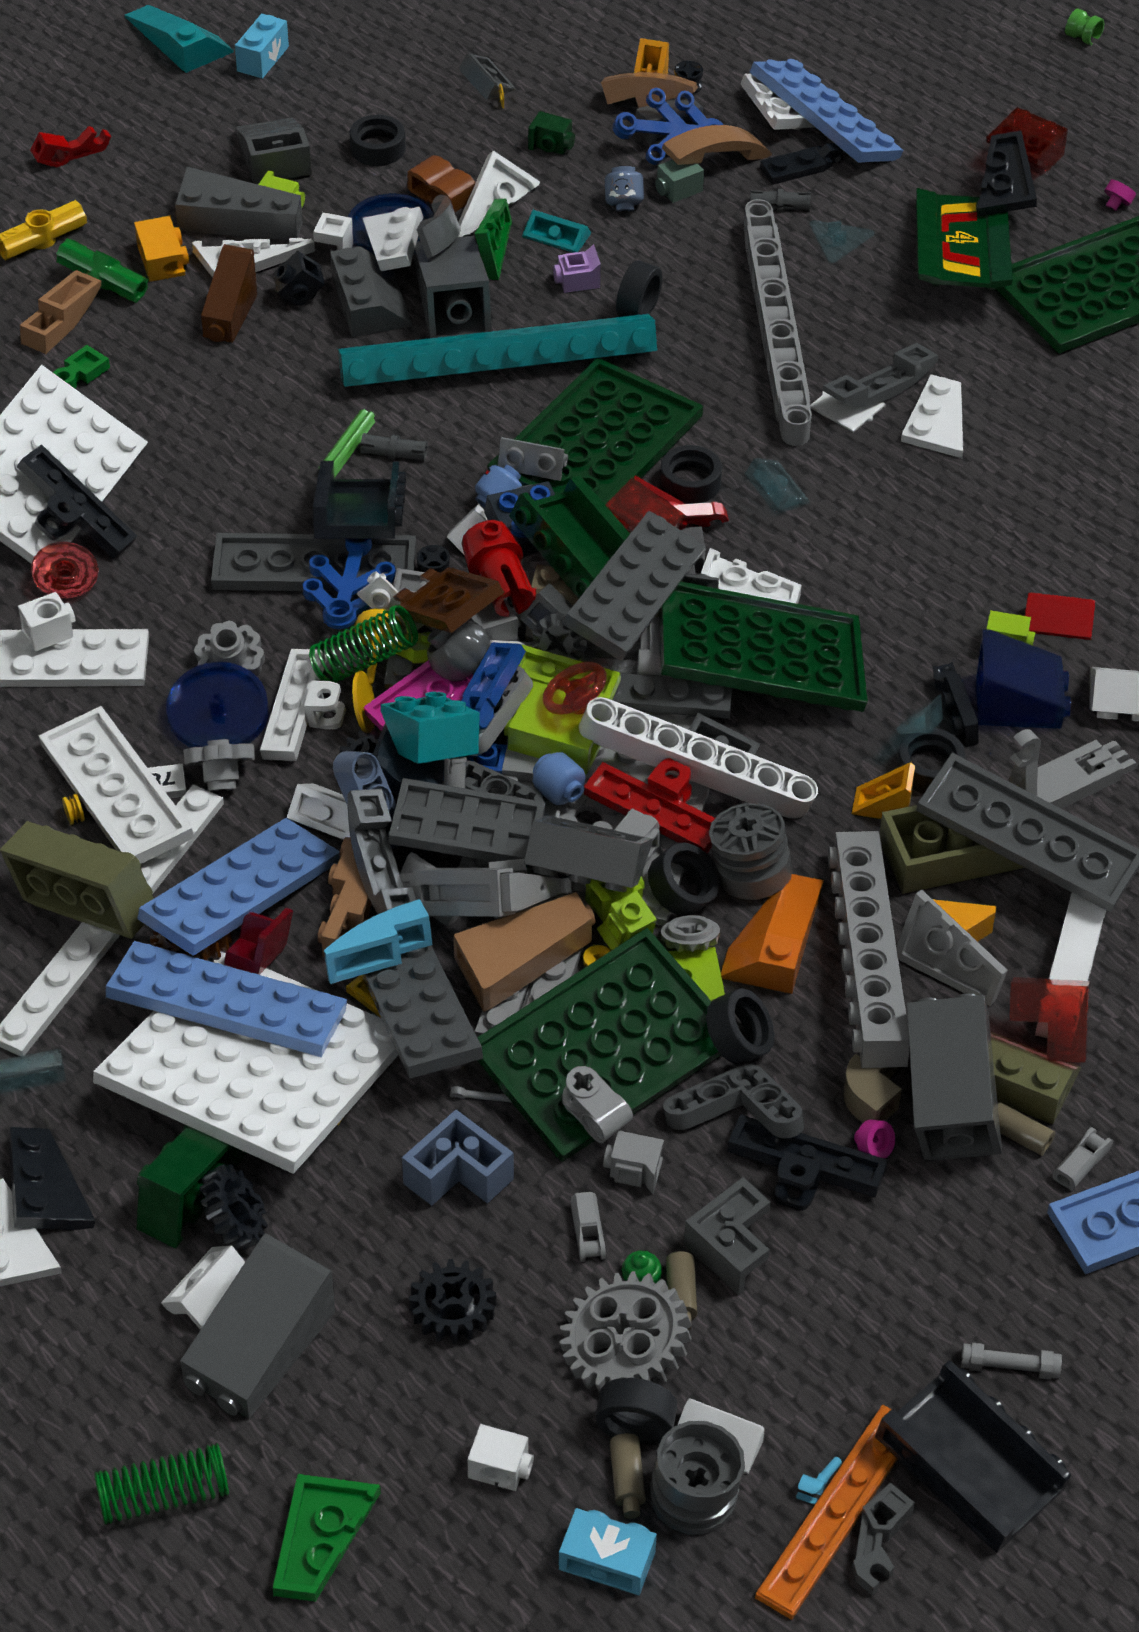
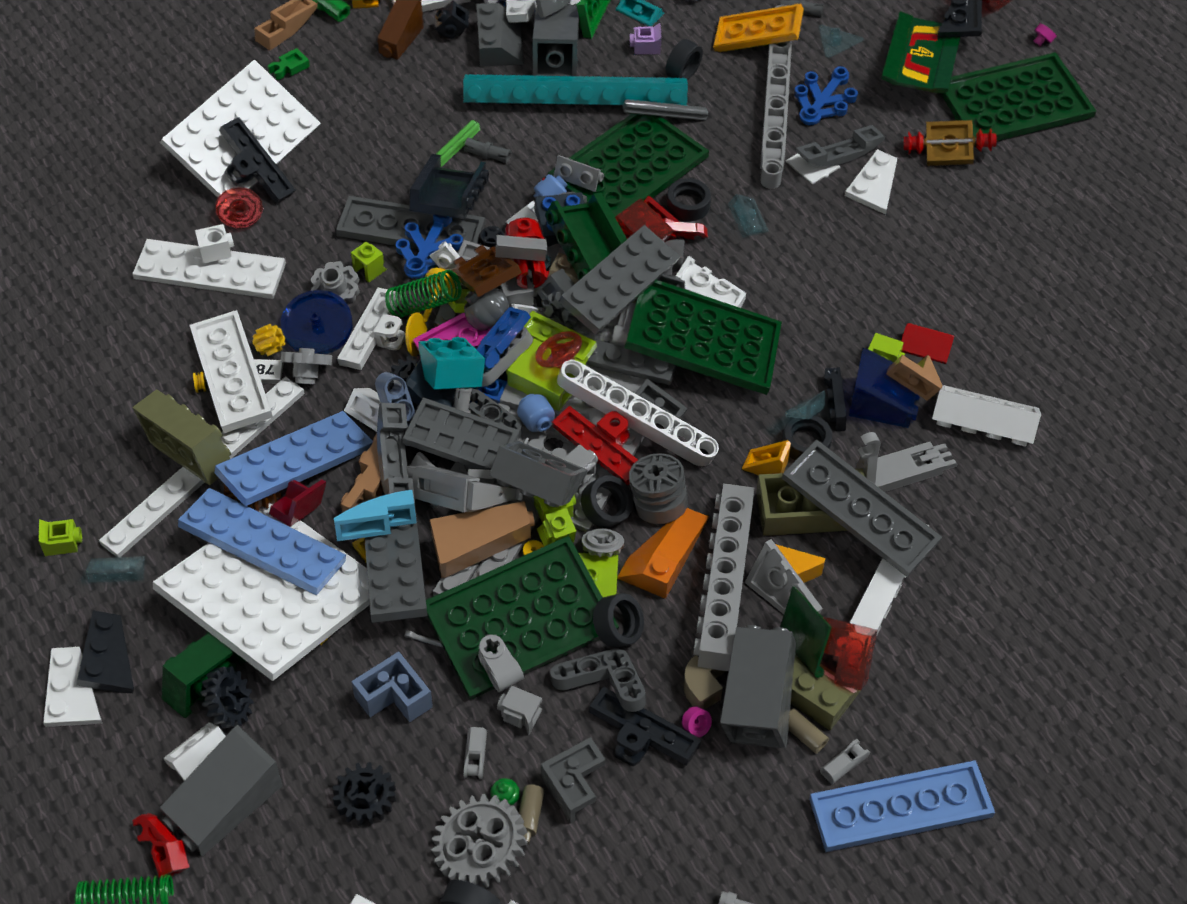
camera: 10 degrees right, 5 degrees up
(157, 739) = (268, 339): none -> yellow gear
(205, 1430) = (166, 851): none -> red piece
(270, 608) = (369, 258): none -> lime window
(494, 560) = (521, 248): none -> light grey slope
(629, 360) = (665, 110): none -> dark grey axle
(730, 234) = (758, 28): none -> light orange tile
(832, 340) = (812, 114): none -> blue plant
(1006, 995) = (809, 630): none -> dark green piece
(1027, 351) = (949, 142): none -> pearl gold plate
(1062, 657) = (918, 377): none -> medium nougat slope

